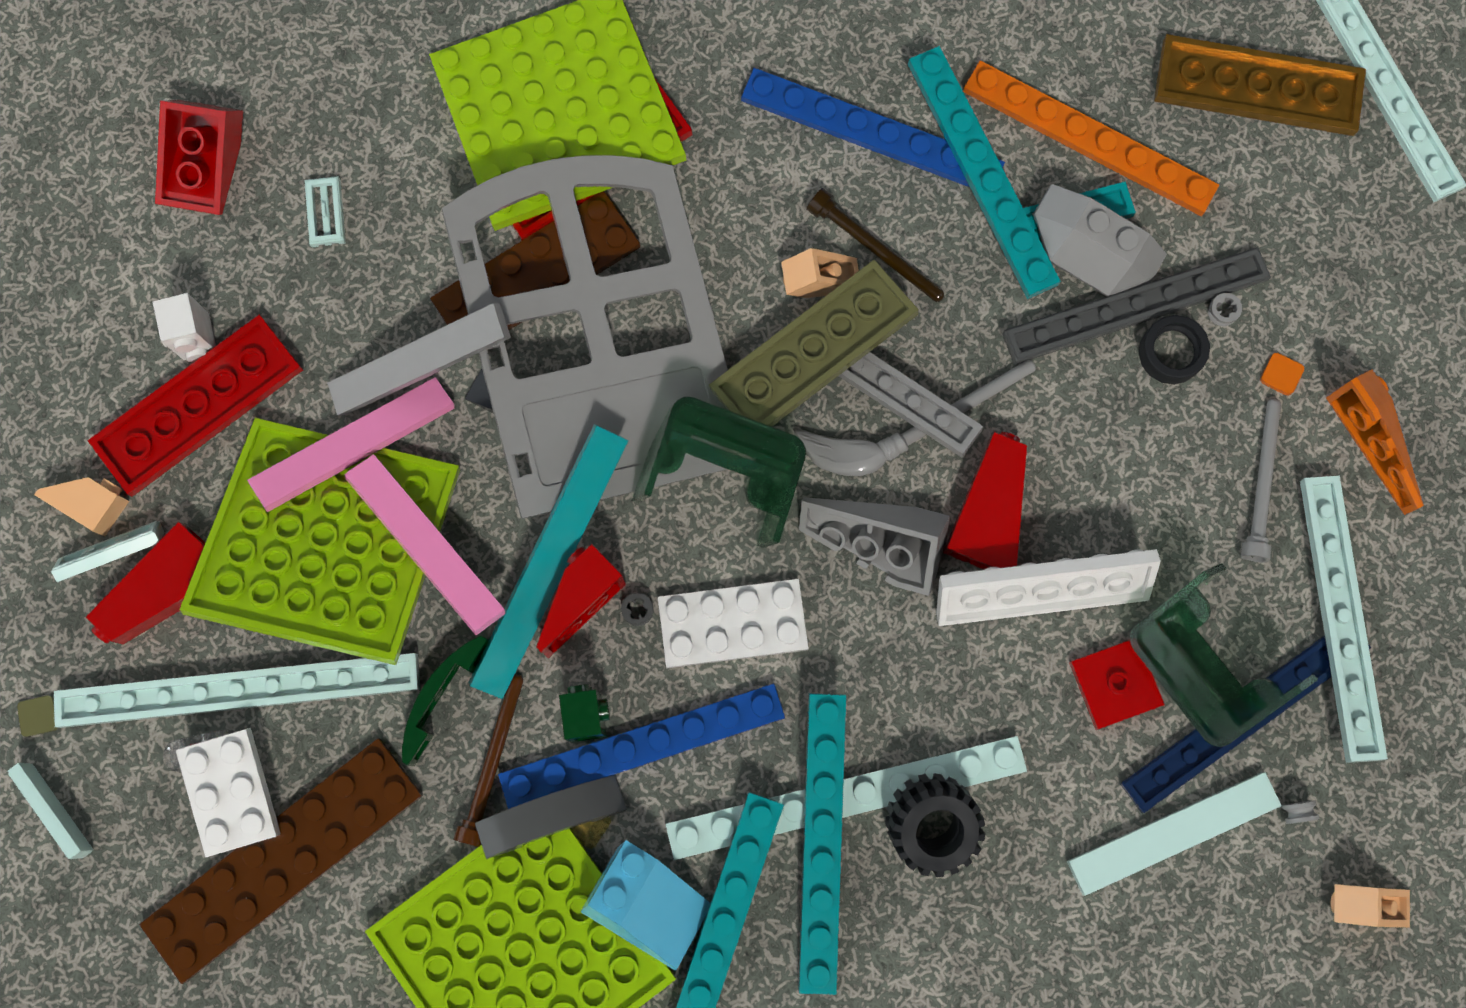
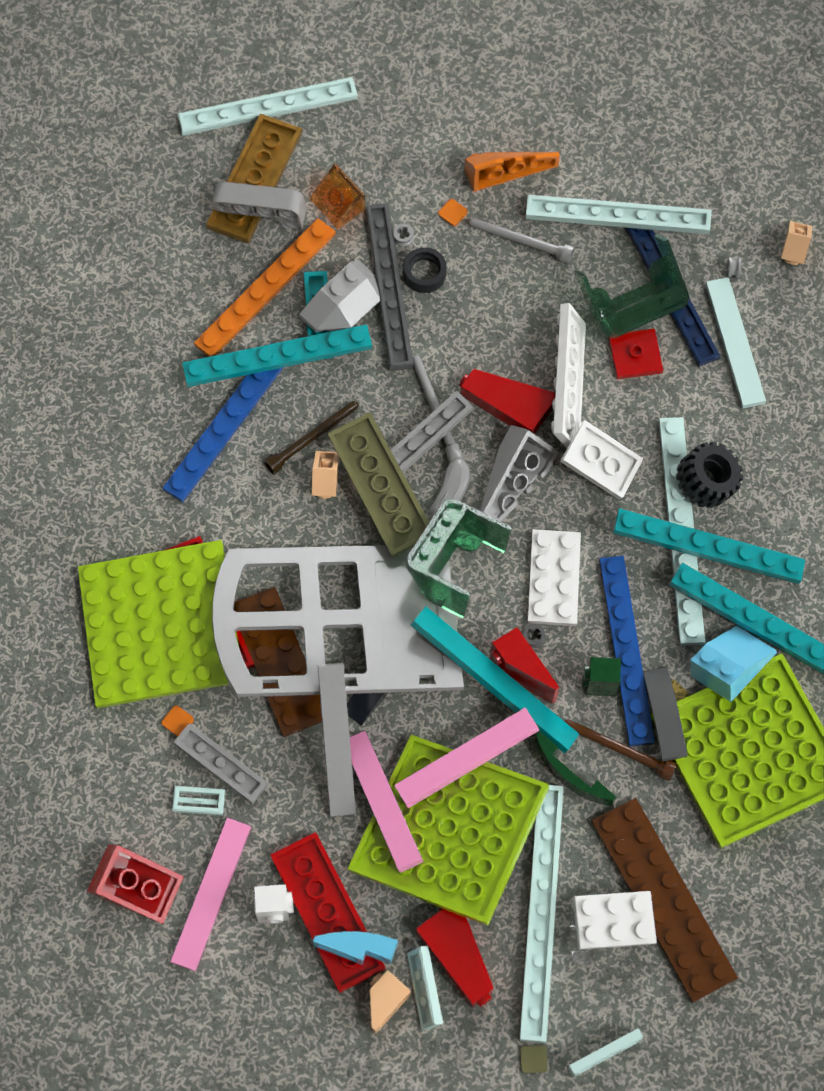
camera: 80 degrees left, 10 degrees down
(142, 448) = (357, 945): none -> medium azure slope
(202, 254) = (211, 894): none -> bright pink tile
(377, 227) = (221, 763): none -> light grey plate
(430, 162) = (177, 720): none -> orange piece
(925, 658) = (601, 460): none -> white plate
(1217, 98) = (261, 201): none -> light grey beam
(1257, 204) = (338, 197): none -> clear orange slope

